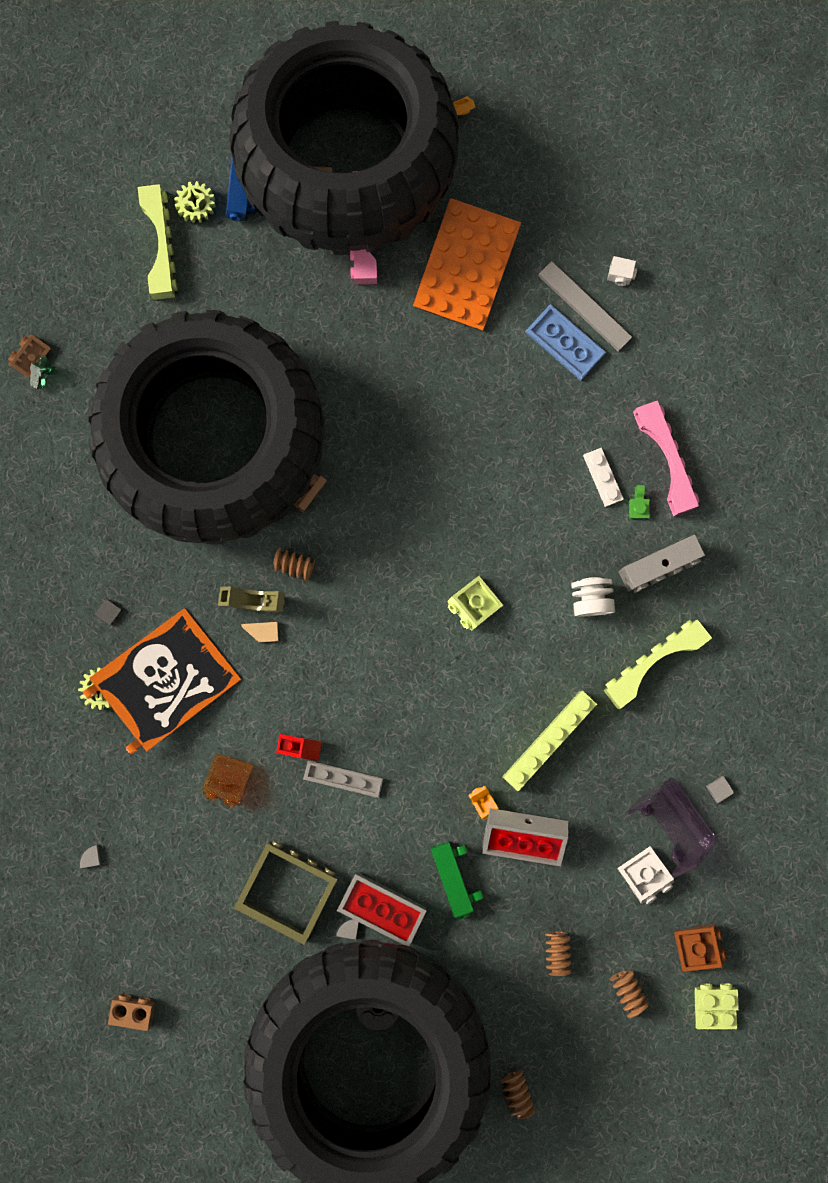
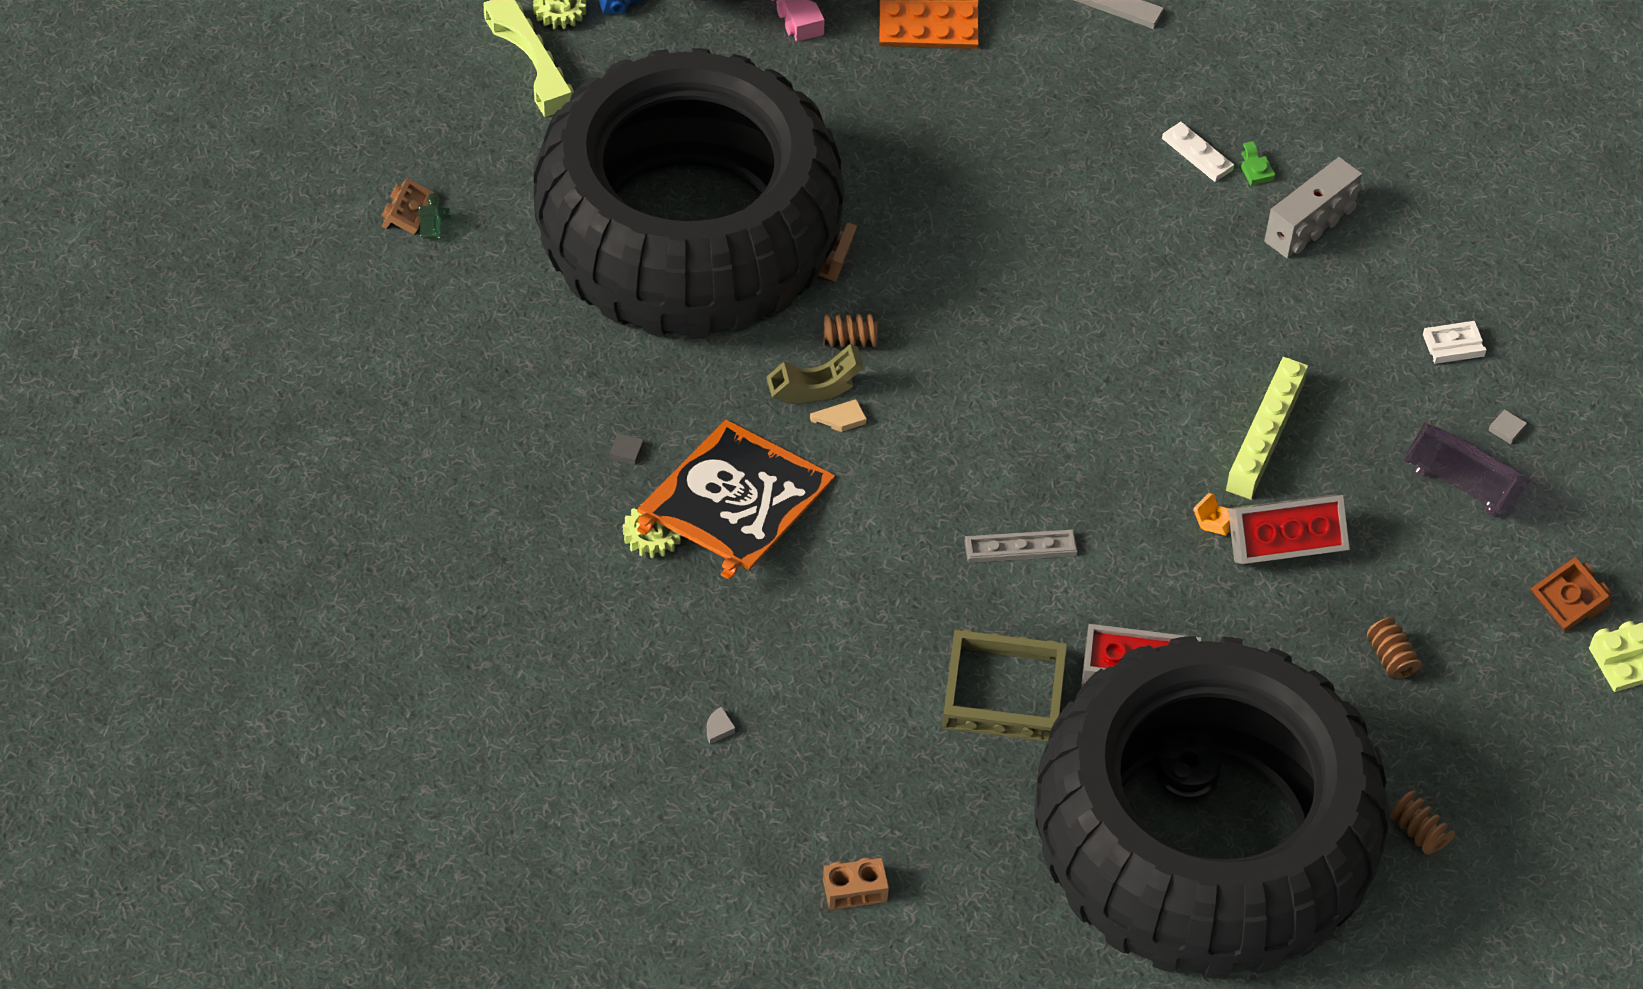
camera: 20 degrees left, 30 degrees down
(227, 780) = (868, 584): clear orange plate -> none
(299, 747) = (947, 521): red slope -> none
(452, 880) = (1216, 609): green brick -> none
(474, 603) = (1101, 313): yellowish green plate -> none
(565, 342) = (1085, 33): medium blue tile -> none
(593, 597) = (1247, 262): white wheel -> none
(626, 687) = (1385, 282): yellowish green arch -> none
(631, 992) = (1507, 668): medium nougat piece -> none
(646, 876) = (1464, 537): white plate -> none
(652, 422) = (1232, 81): bright pink arch -> none
(714, 707) = (1454, 342): none -> white plate

